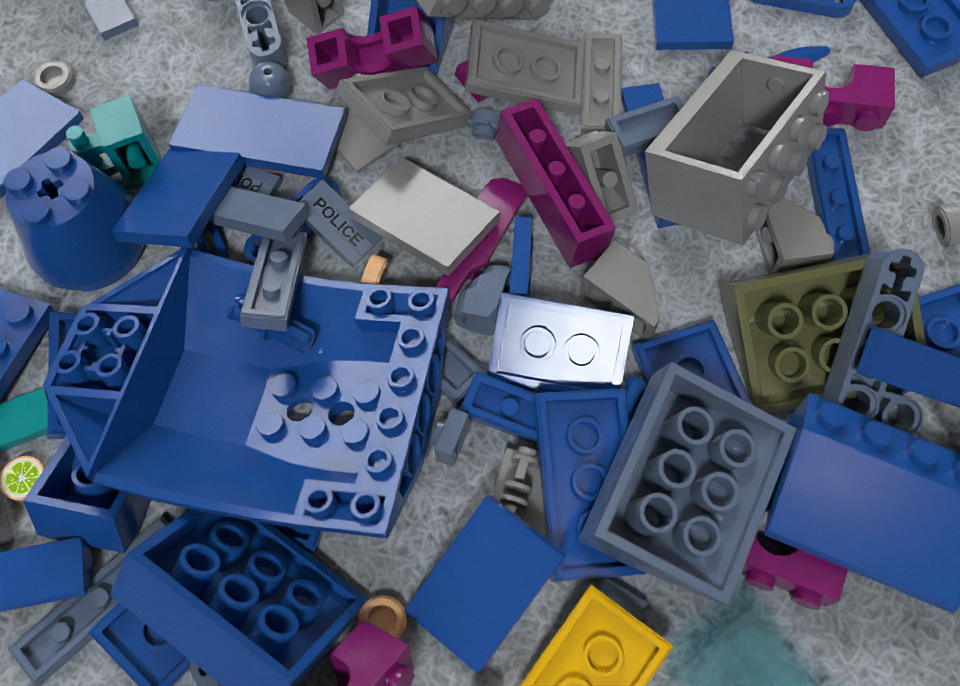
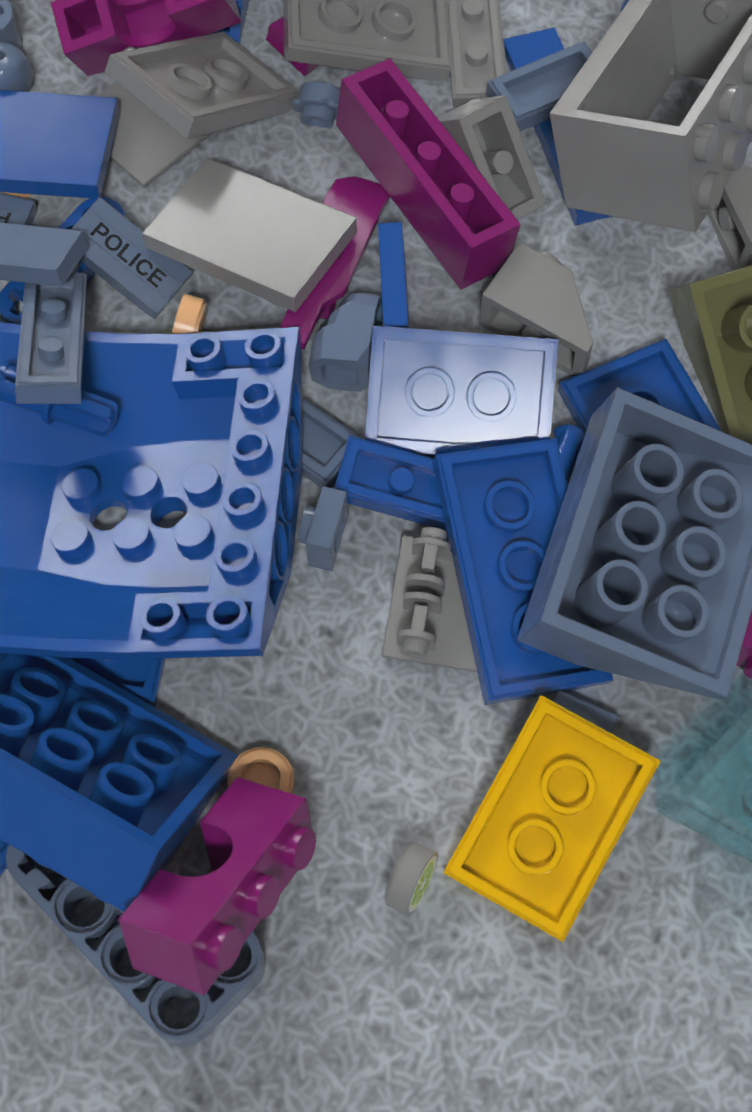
camera: 10 degrees left, 0 degrees up
(484, 583) = (396, 712): blue tile -> none

